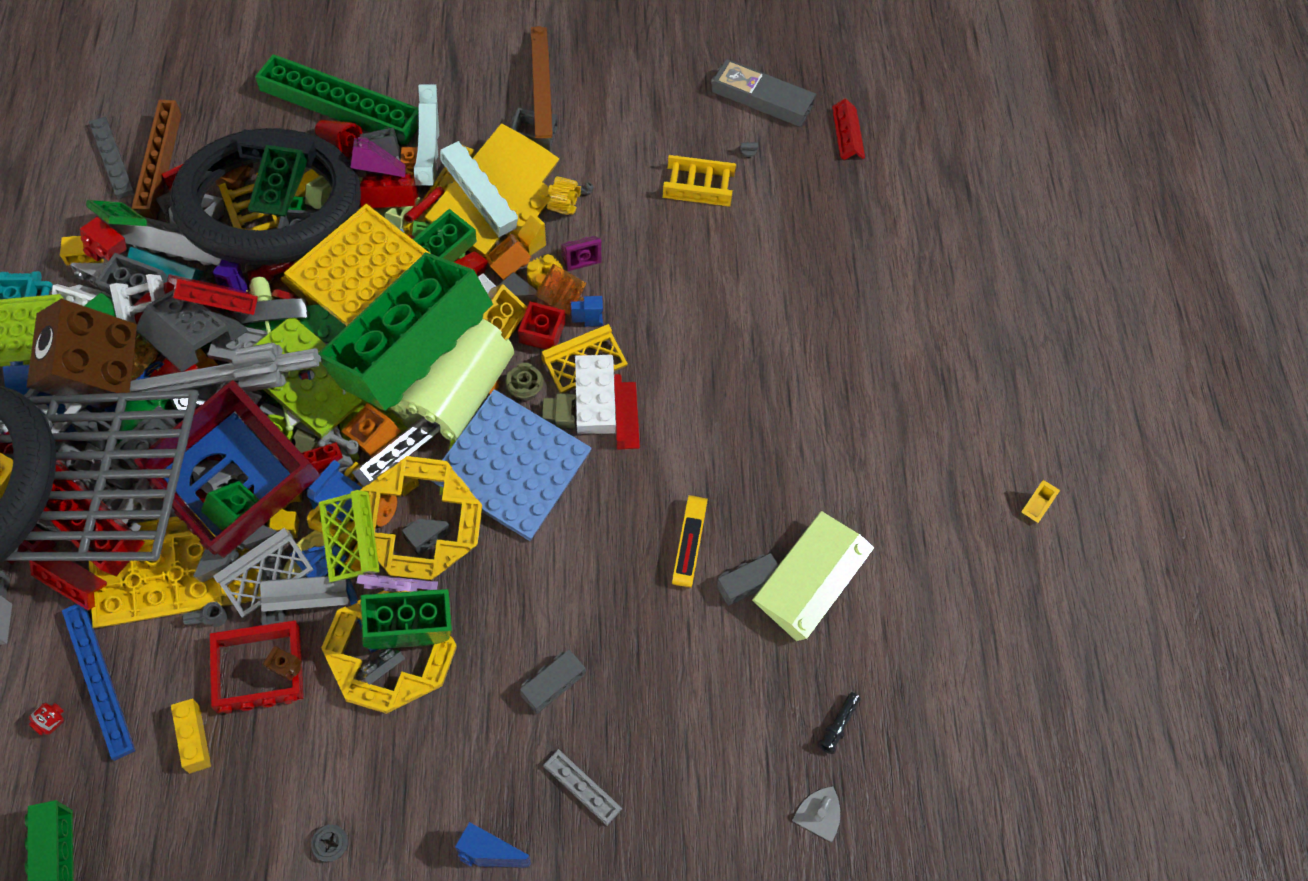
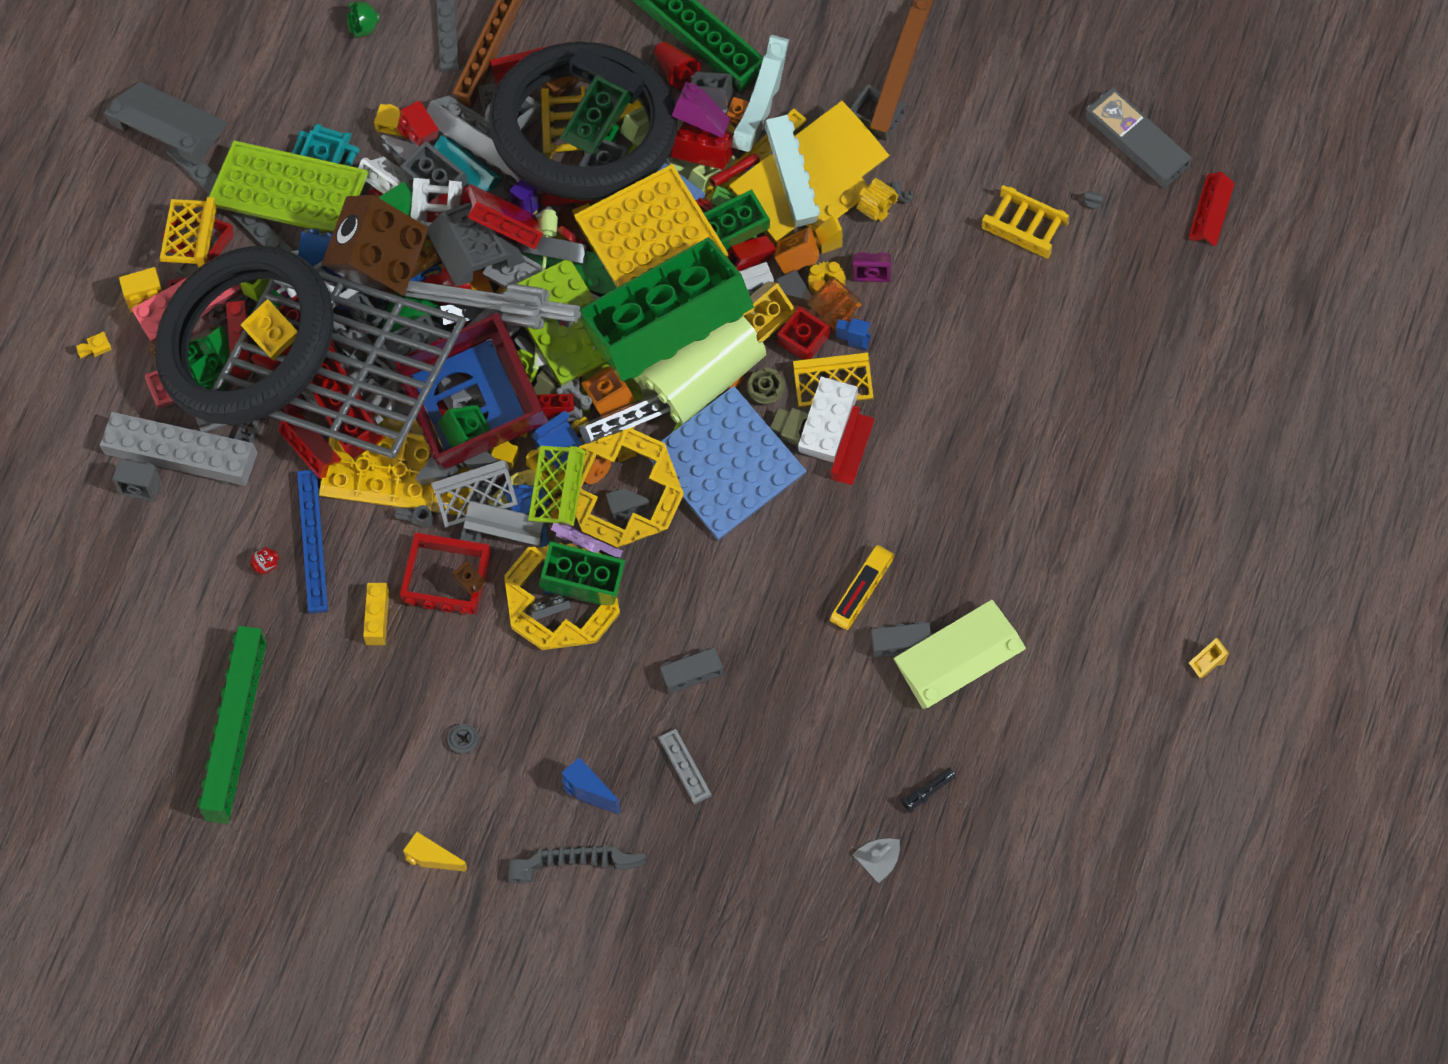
camera: 30 degrees right, 5 degrees up
(25, 172) = (362, 19): none -> green cylinder
(116, 213) = (437, 96): green tile -> none

